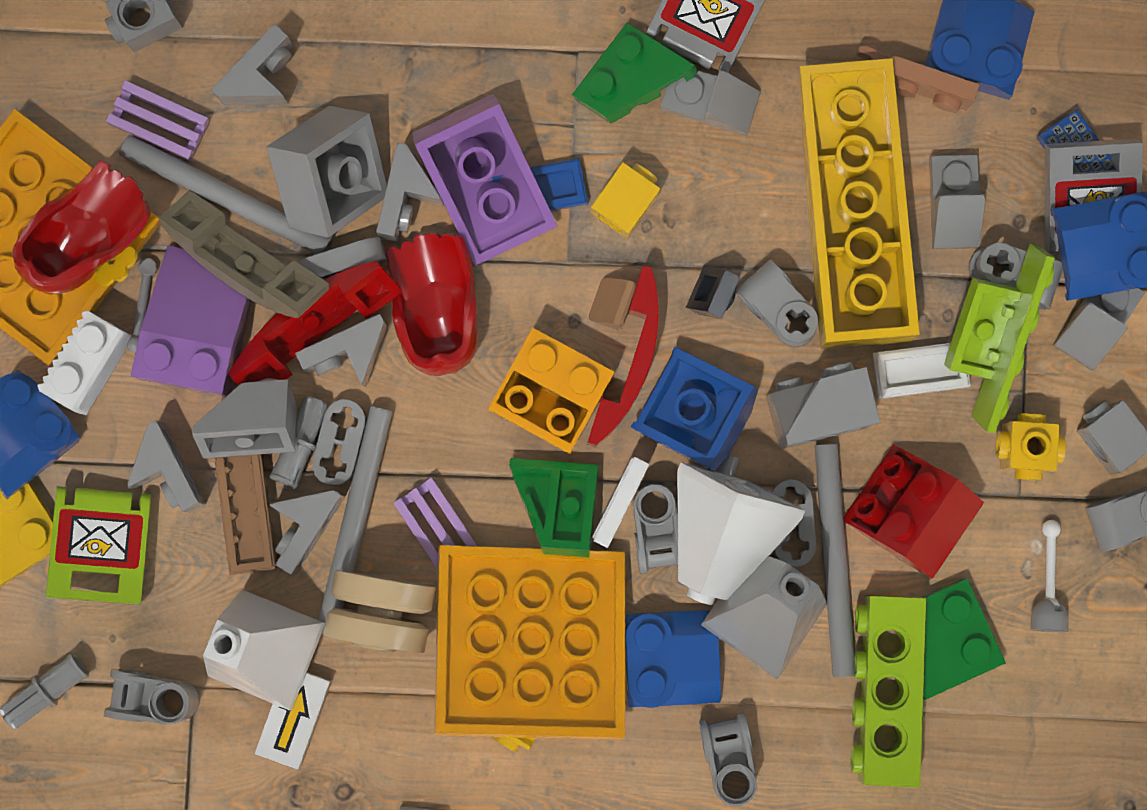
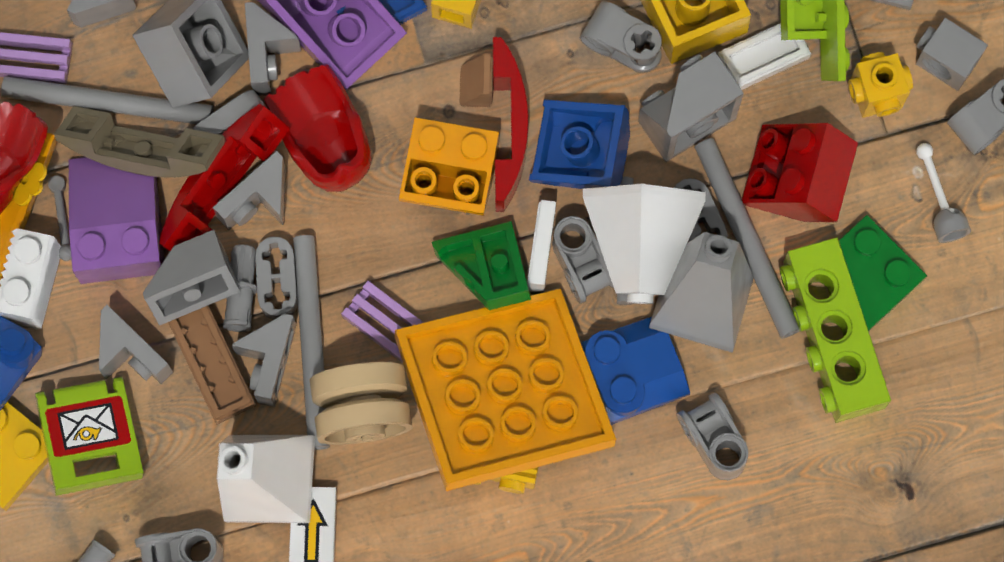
camera: 20 degrees left, 10 degrees down
(713, 292) = (561, 44): black plate -> none

